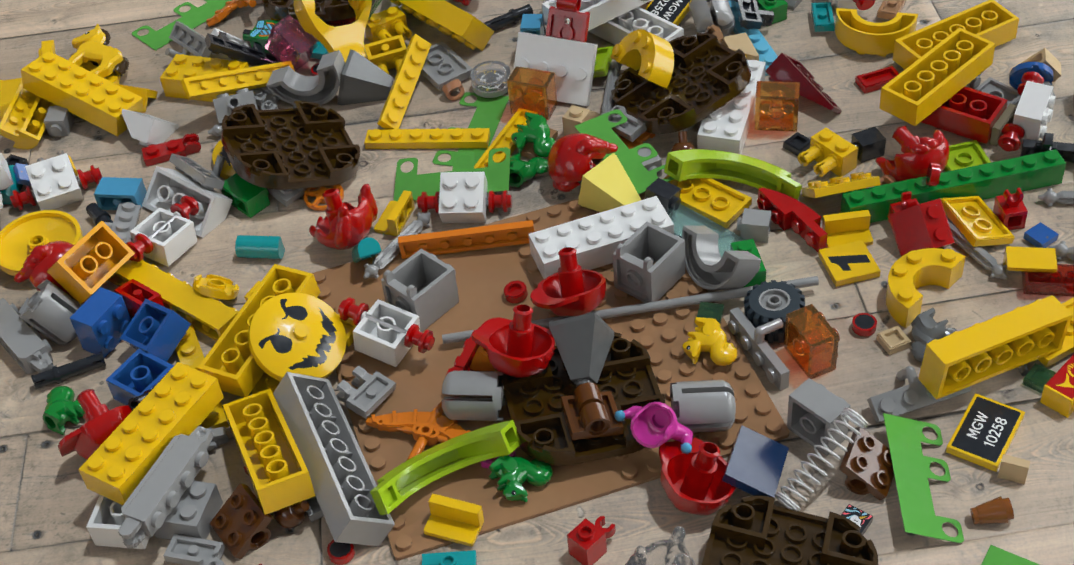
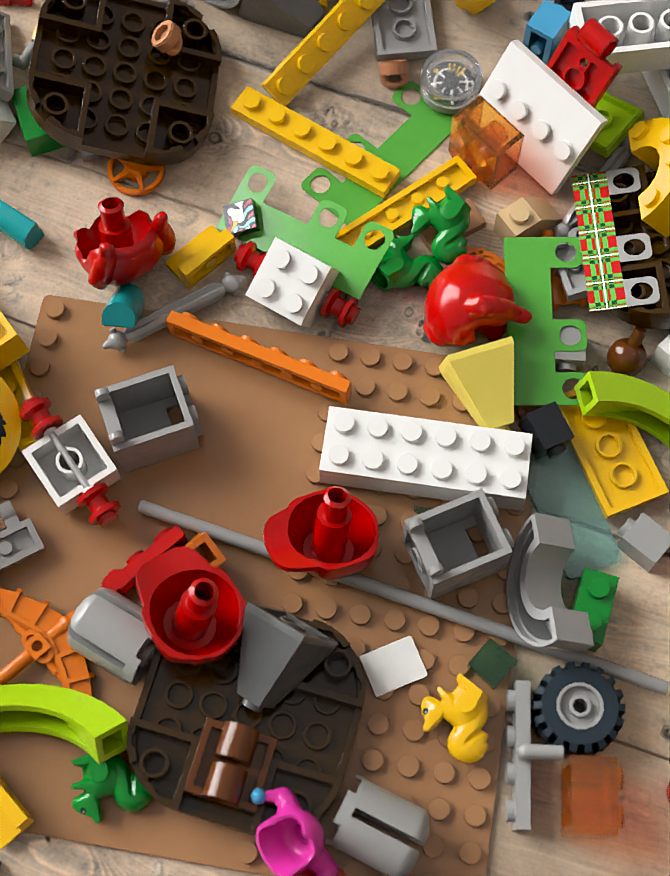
camera: 25 degrees right, 25 degrees up
(307, 115) = (167, 38): none -> nougat tile
(408, 183) = (241, 217): none -> tile
(515, 292) = (274, 475): red tile -> none
(634, 107) = (601, 247): none -> piece
(656, 342) = (393, 666): none -> white sticker

